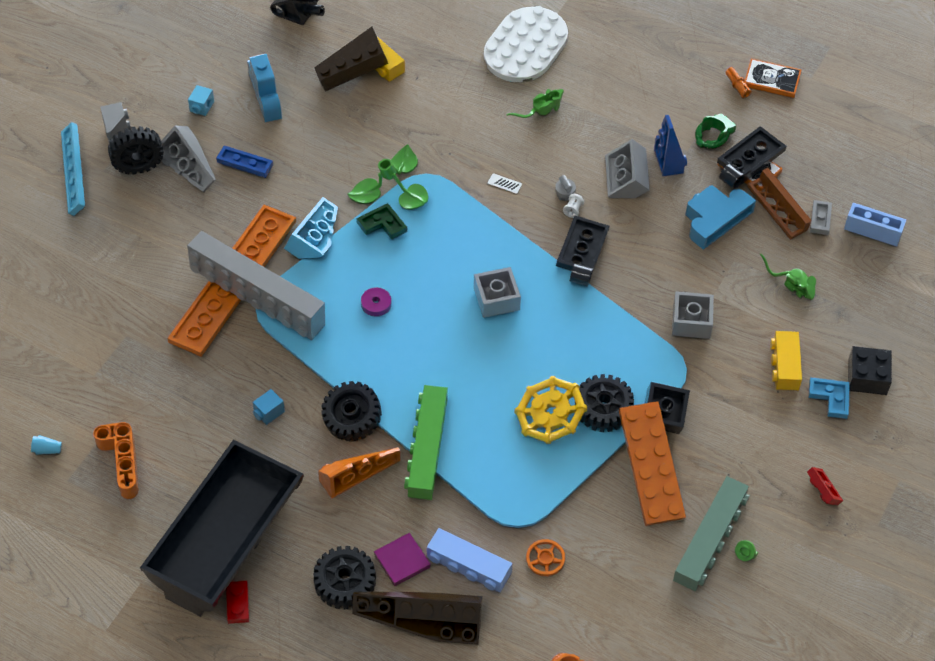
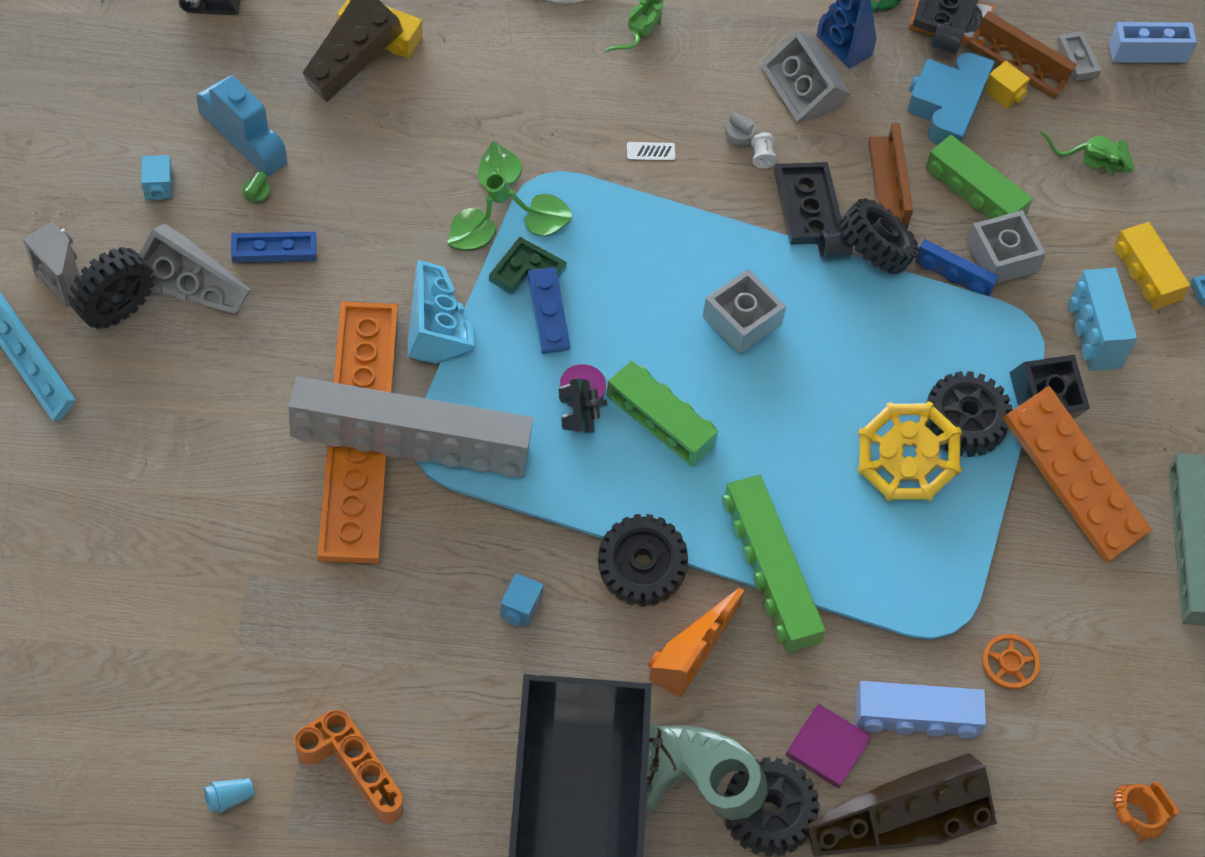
camera: 30 degrees left, 5 degrees up
(254, 126) = (256, 188): none -> bright green plate
(315, 533) = (704, 759): none -> sand green animal
(365, 310) = (584, 403): none -> black hips
(380, 251) = (548, 310): none -> blue plate
(413, 332) = (662, 413): none -> bright green brick
(610, 278) = (879, 236): none -> black wheel
(645, 250) = (891, 173): none -> dark orange fence
(653, 317) = (956, 268): none -> blue plate
(701, 269) = (976, 180): none -> bright green brick
(727, 378) = (1102, 319): none -> medium azure brick
(759, 218) = (1007, 85): none -> yellow brick

